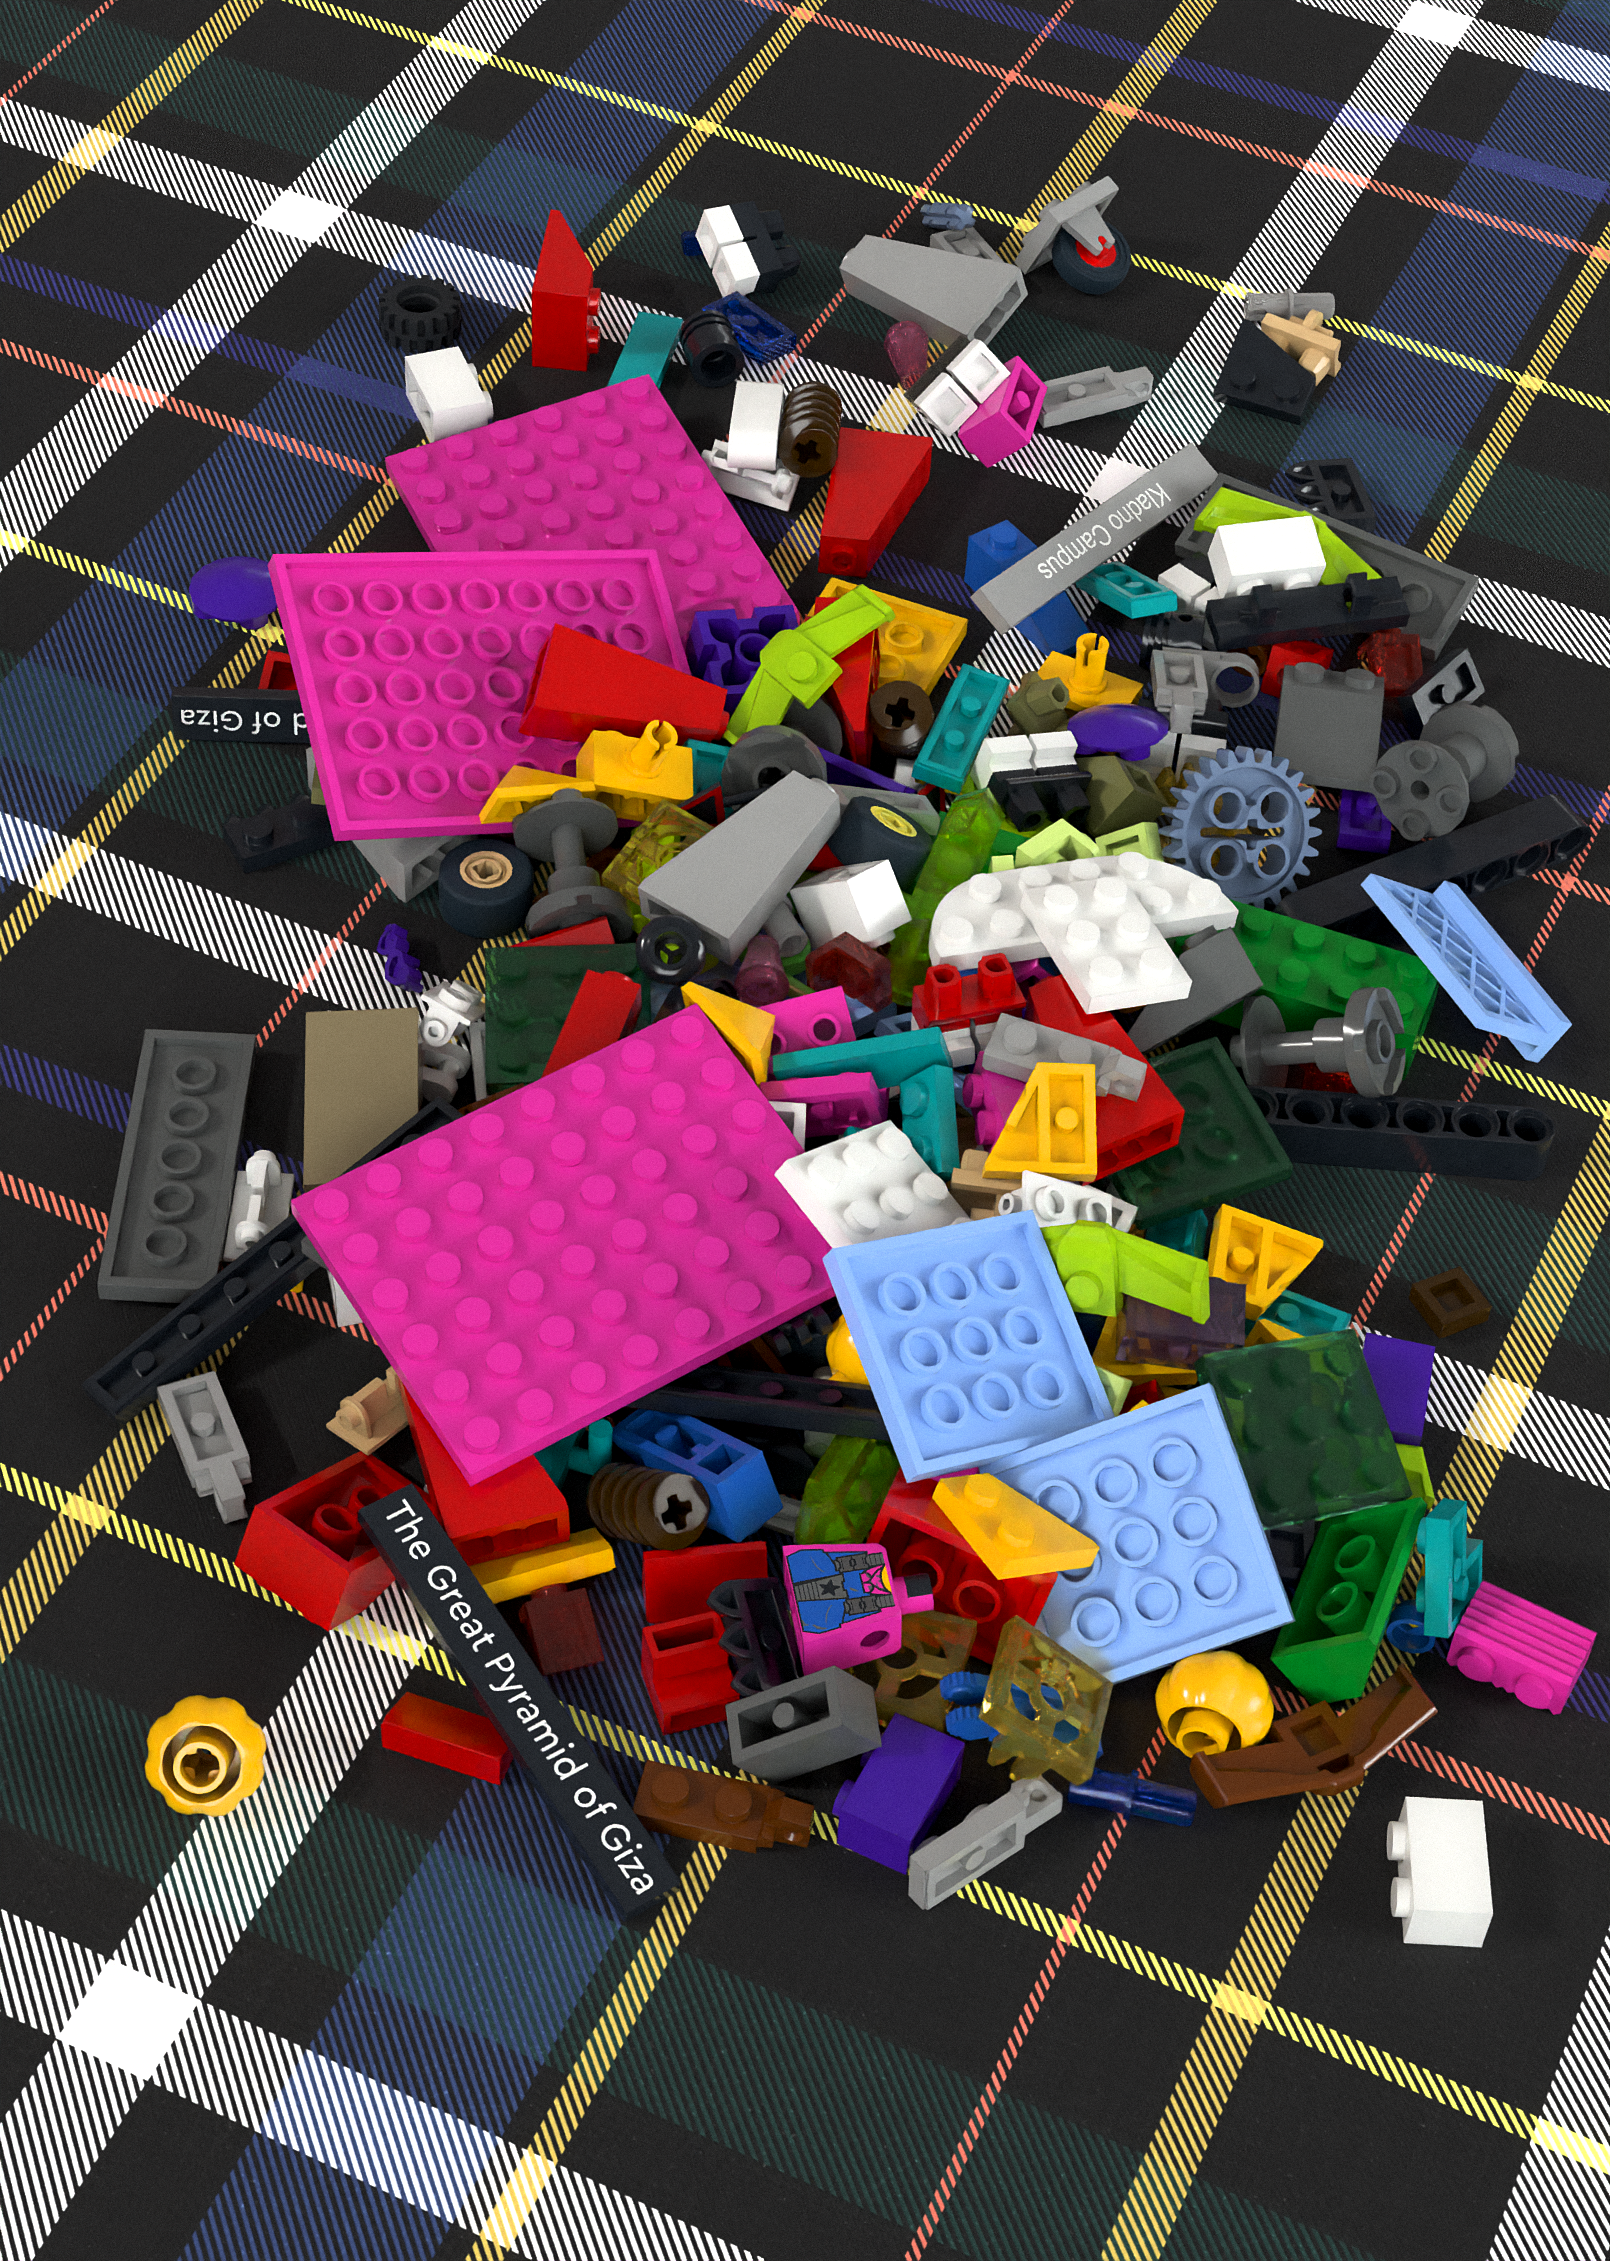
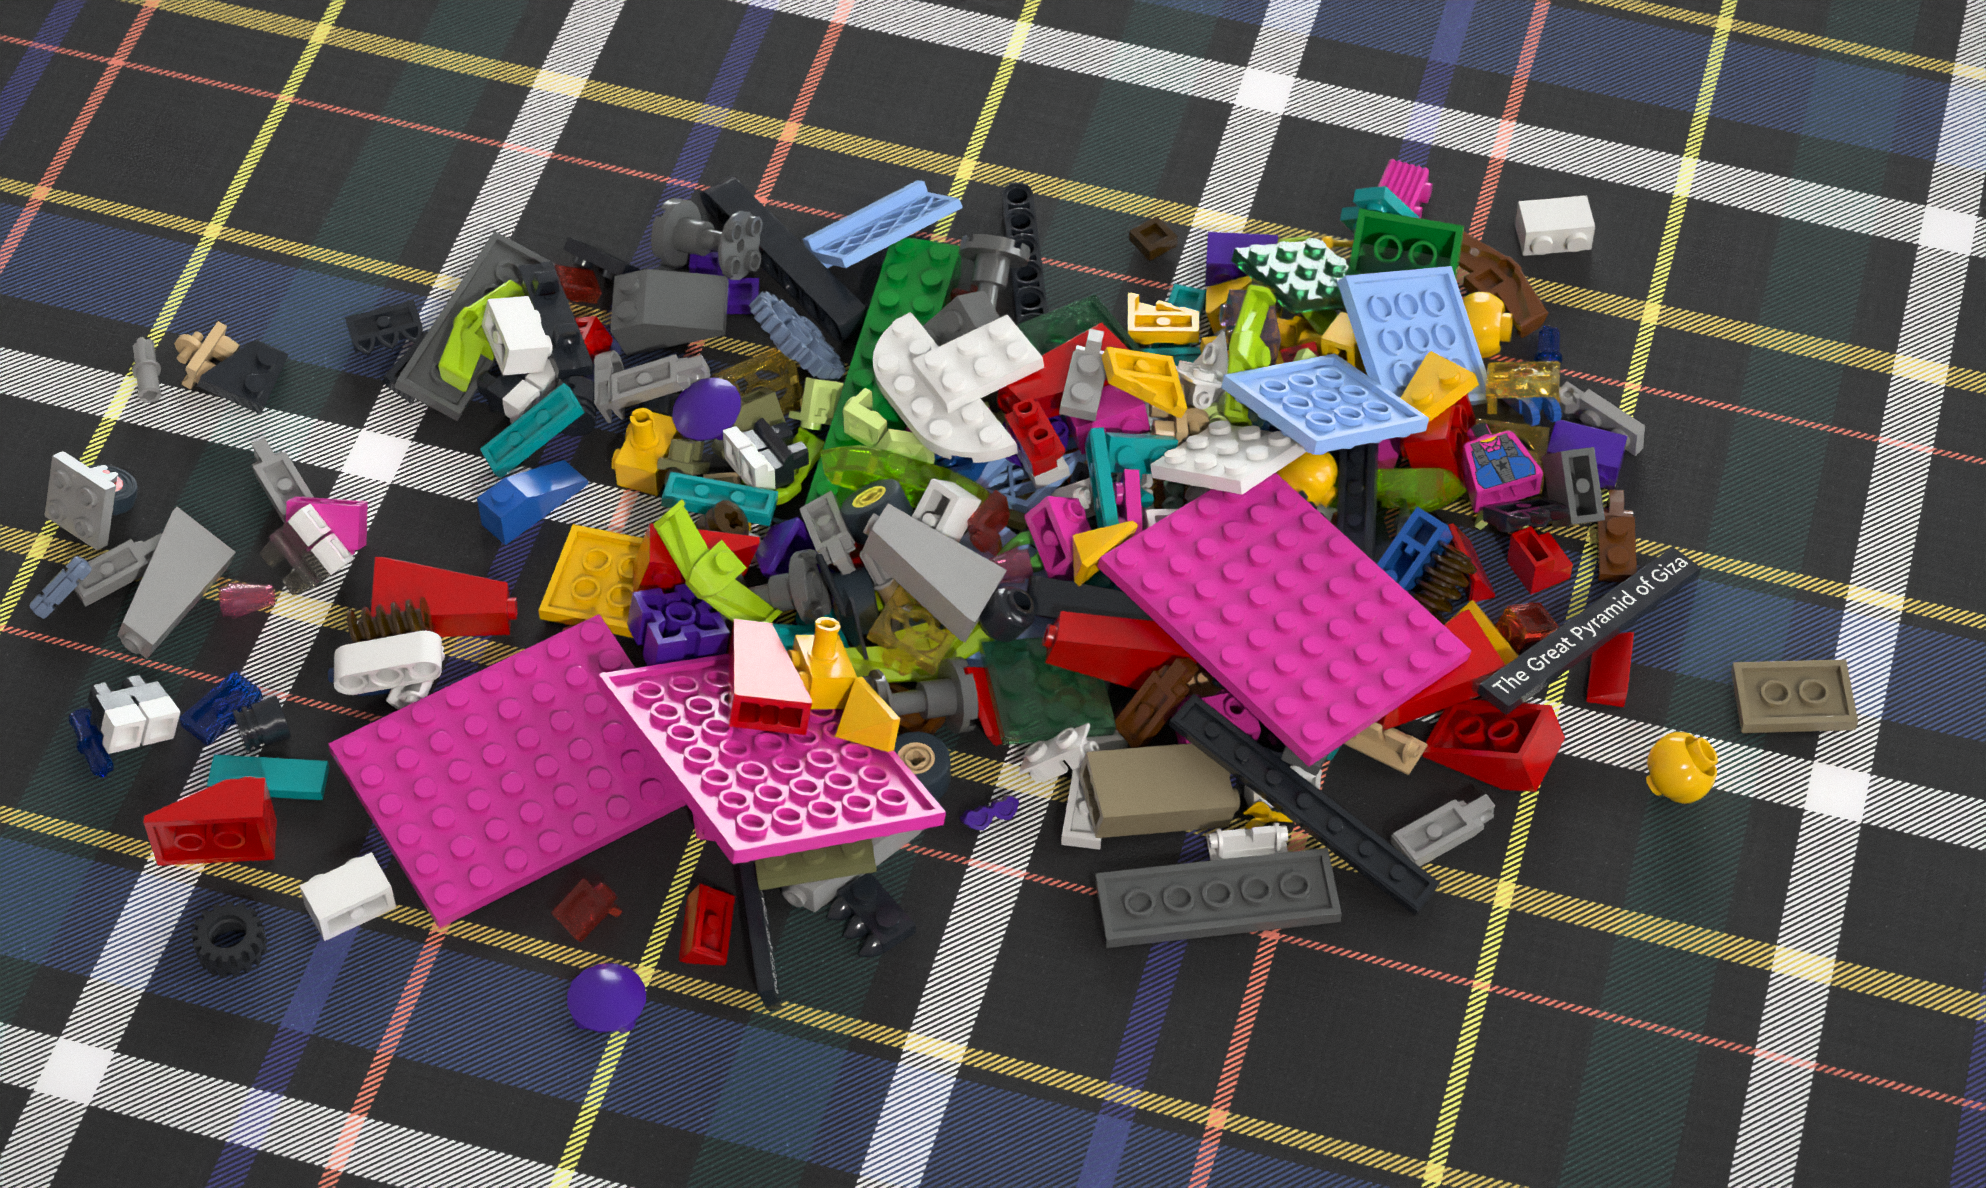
camera: 95 degrees left, 5 degrees up
(321, 1986) = (1794, 696): none -> dark tan plate
(1094, 539) = (477, 449): light grey tile -> none

